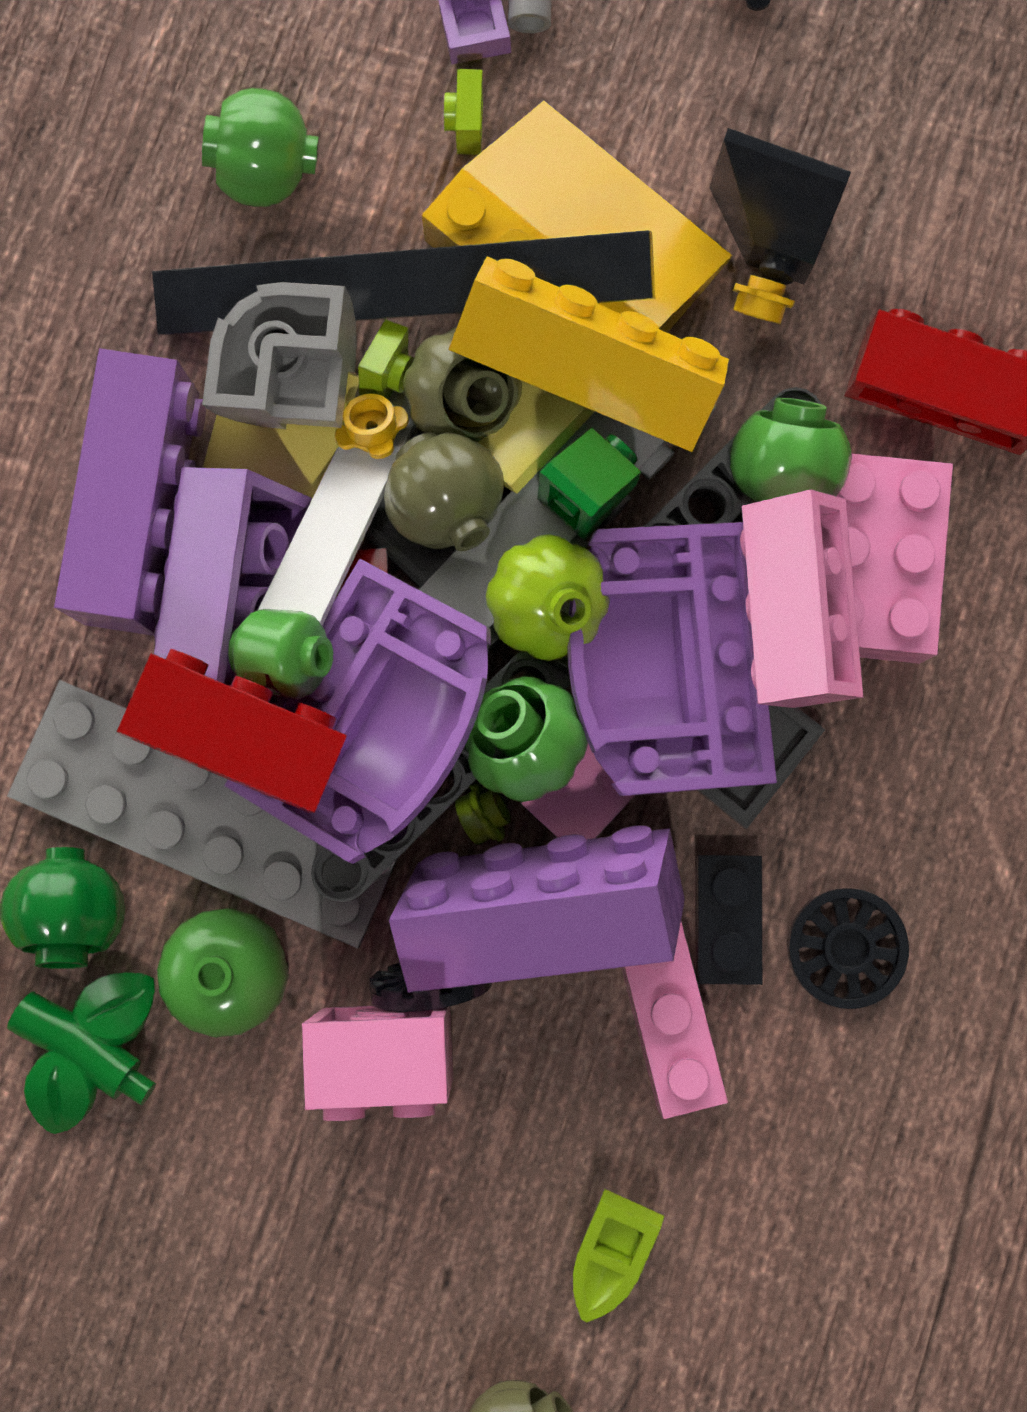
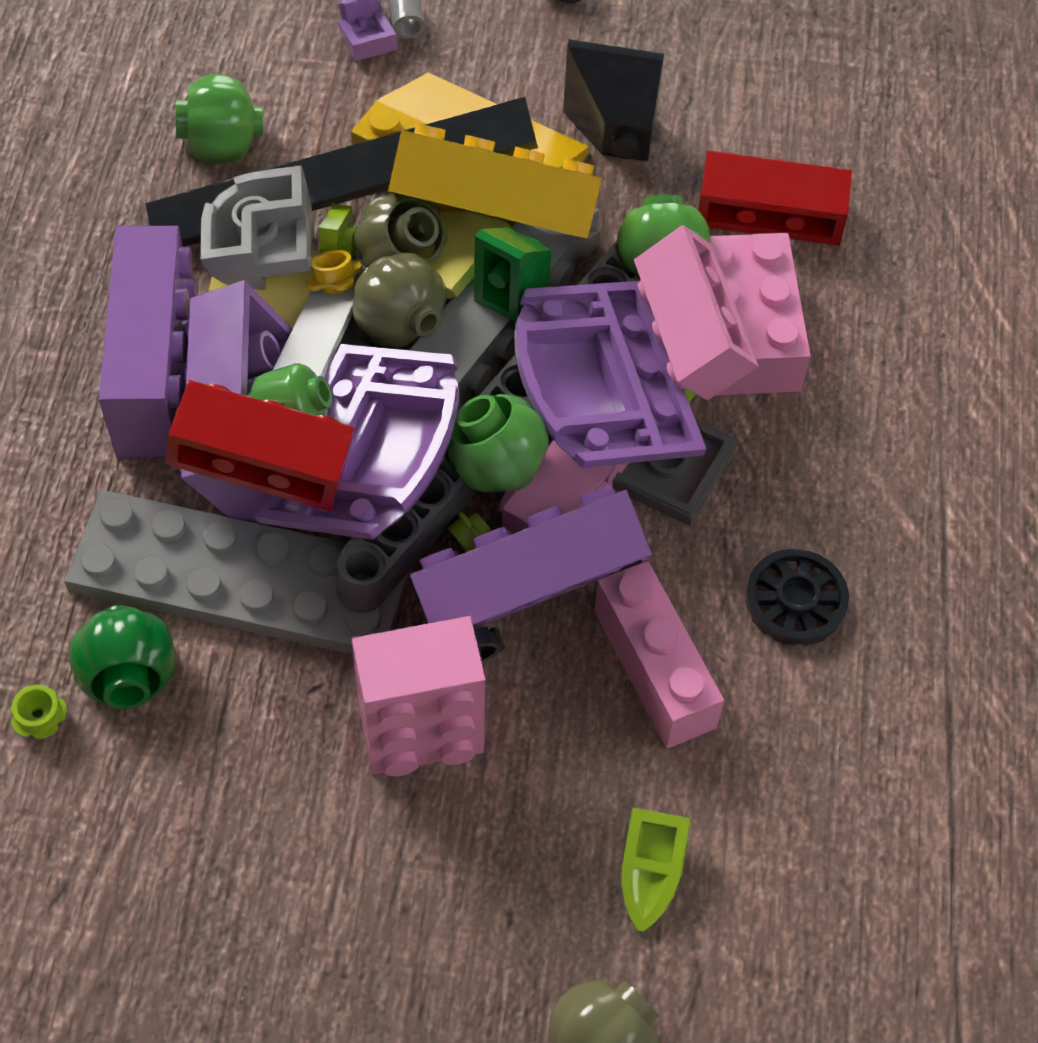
camera: 10 degrees left, 25 degrees down
(84, 1048) = (151, 769): green plant -> none
(222, 972) = (268, 690): bright green cylinder -> none
(465, 111) = (371, 77): lime plate -> none
(534, 596) = (486, 345): lime plant -> none
(729, 919) = (694, 586): black plate -> none
(762, 299) = (618, 165): yellow plate -> none

